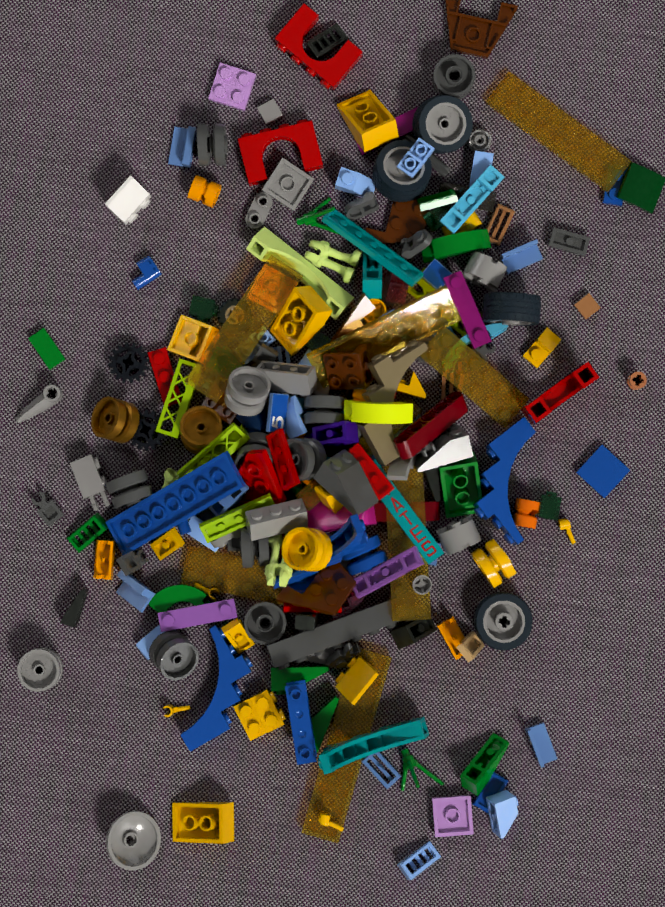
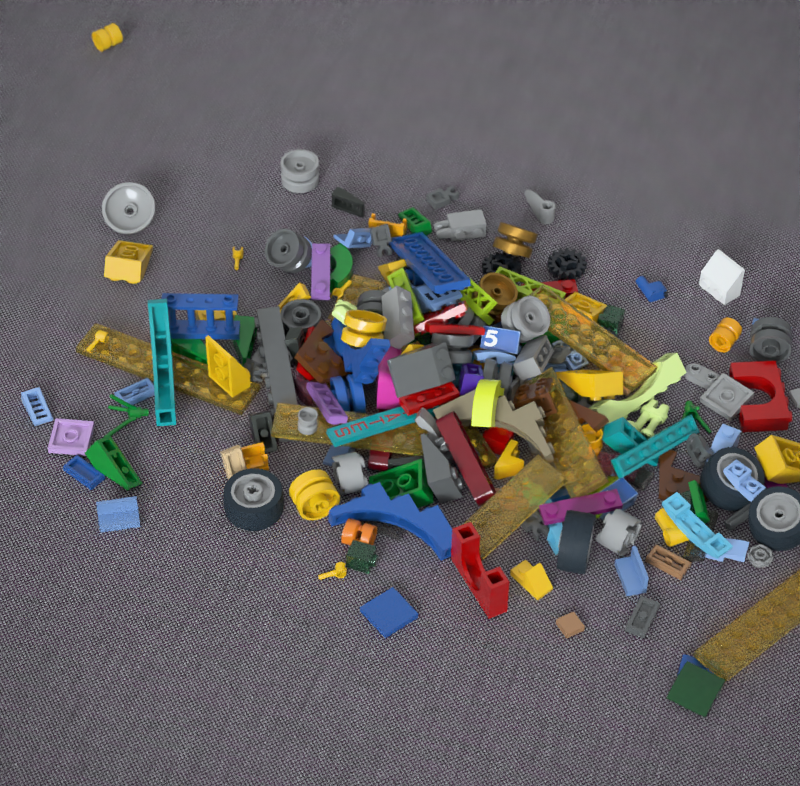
camera: 100 degrees right, 40 degrees down
(47, 348) = (589, 216): green tile -> none
(130, 489) = (450, 241): dark grey wheel -> none
(214, 721) = (221, 278): blue arch -> none
(415, 244) = (655, 479): dark grey plate -> none
(457, 244) = (651, 517): green arch -> none
(502, 811) = (64, 470): light blue slope -> none
(641, 376) = (478, 651): nougat bush -> none

